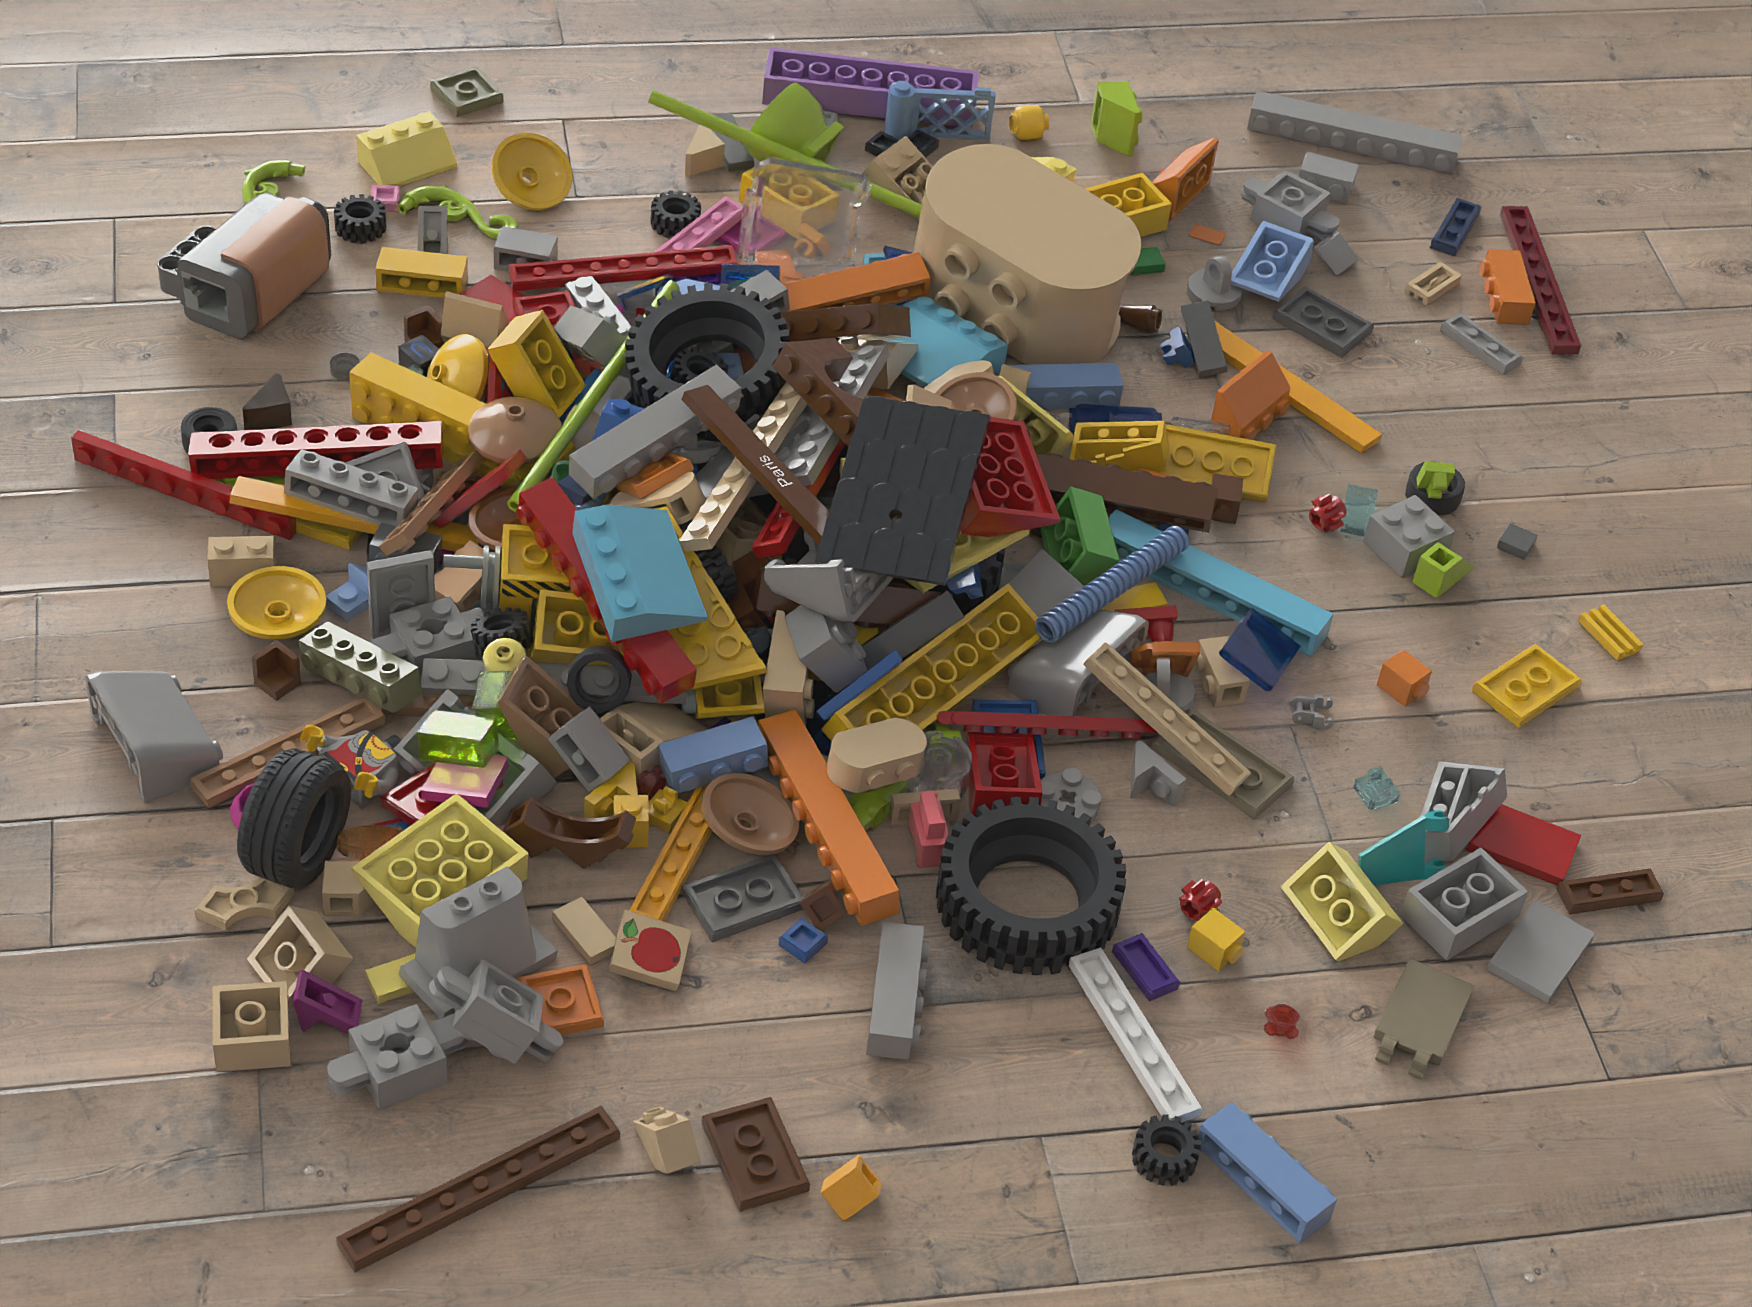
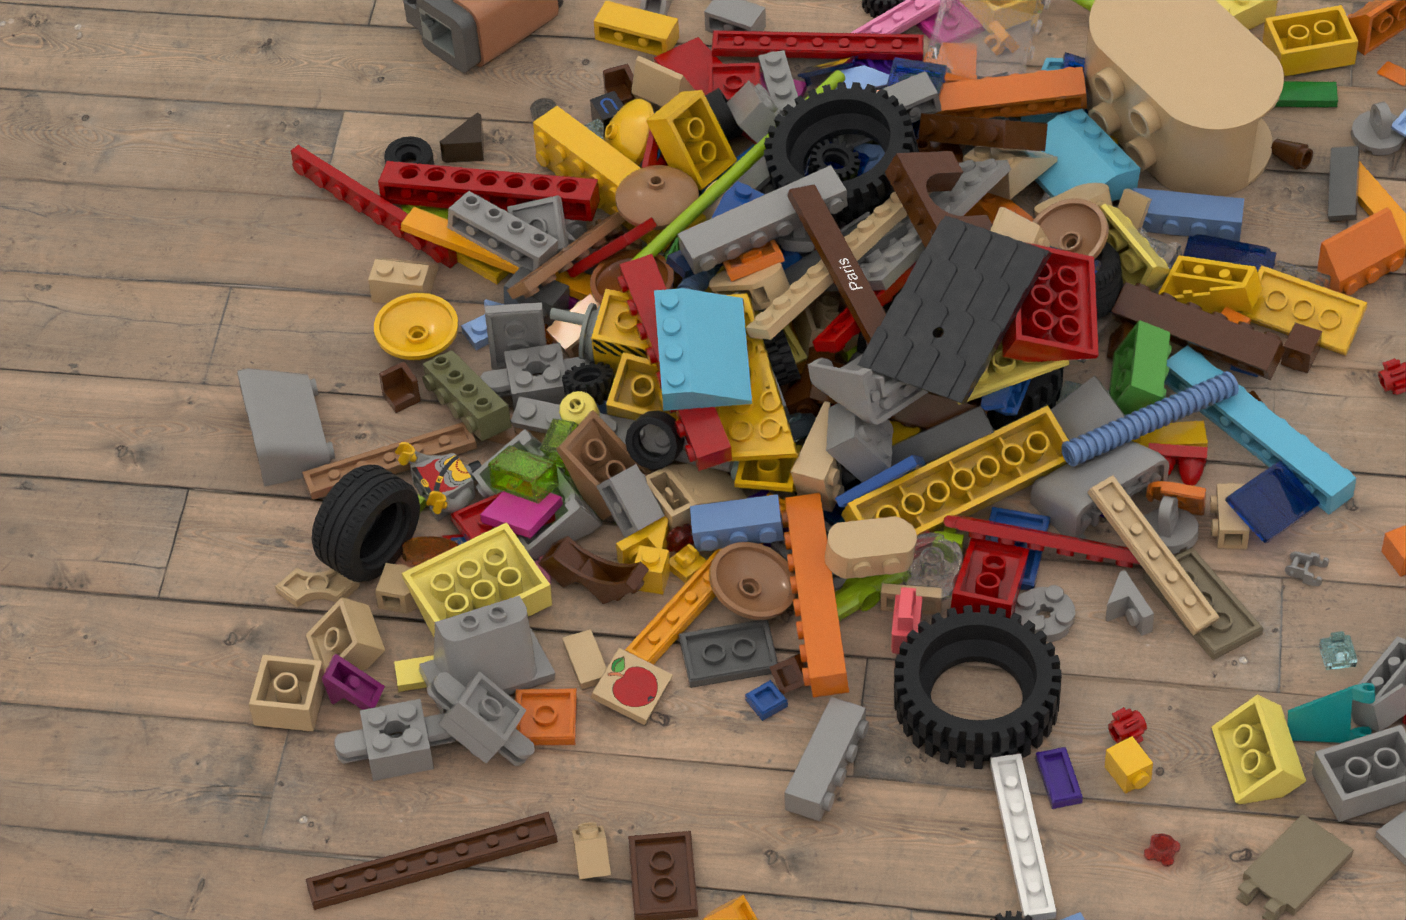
camera: 25 degrees right, 5 degrees up
(1177, 349) = (1315, 190): blue tile -> none

